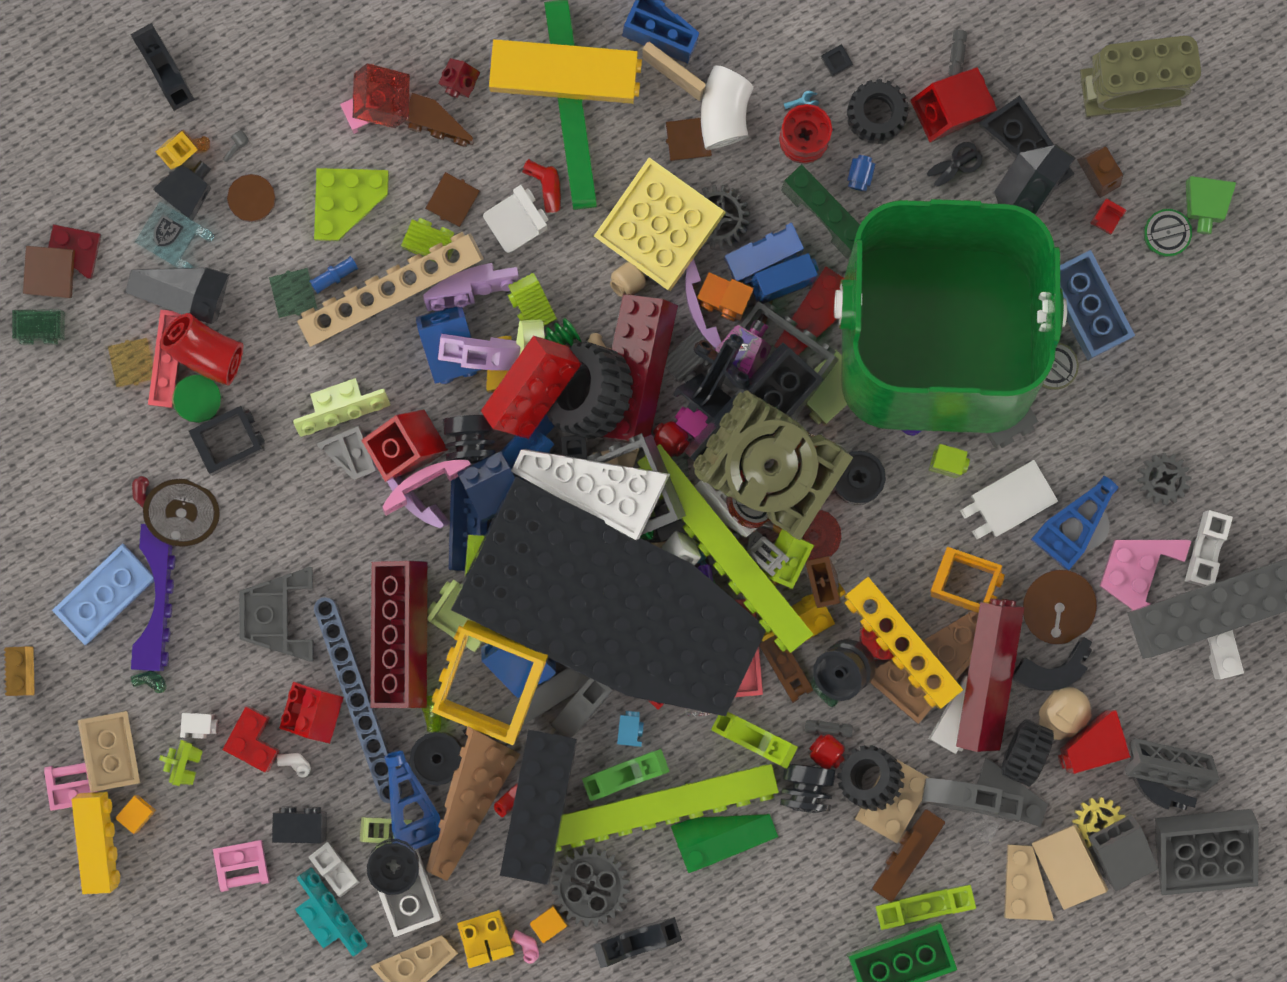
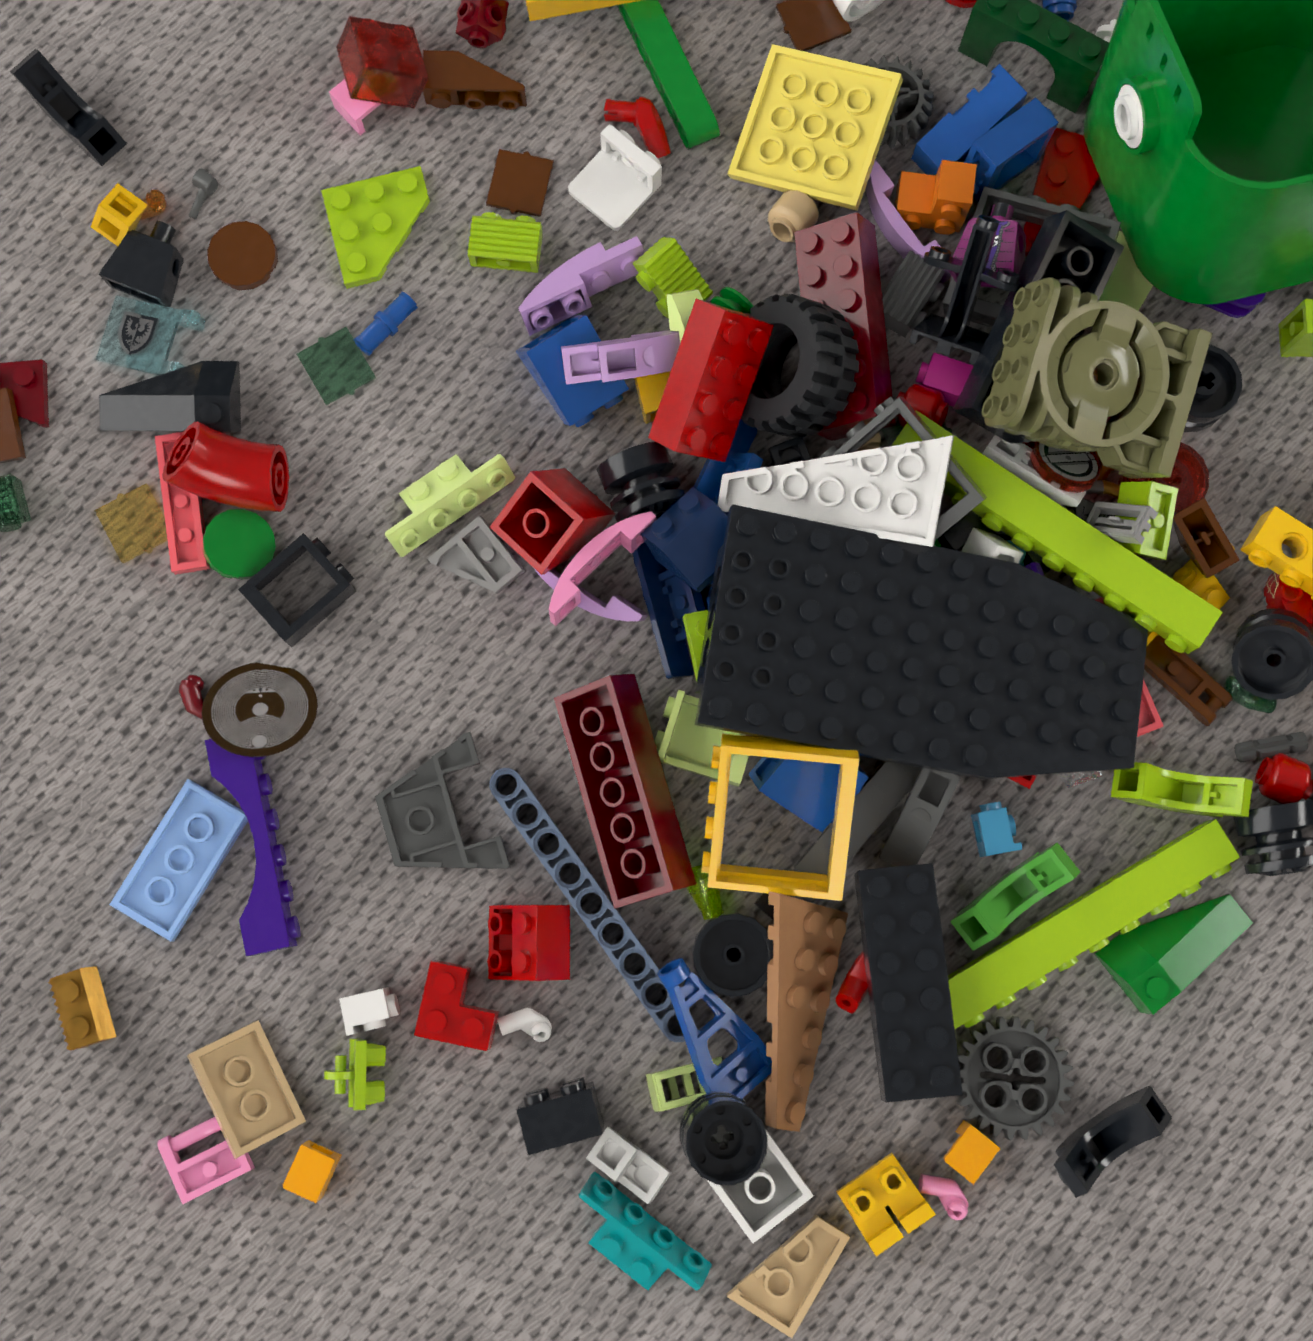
camera: 15 degrees left, 5 degrees down
(95, 842) = (261, 1234): yellow brick -> none
(151, 679) = (282, 963): clear green arm -> none
(240, 857) = (485, 1189): bright pink plate -> none
(316, 332) = (490, 311): tan brick -> none

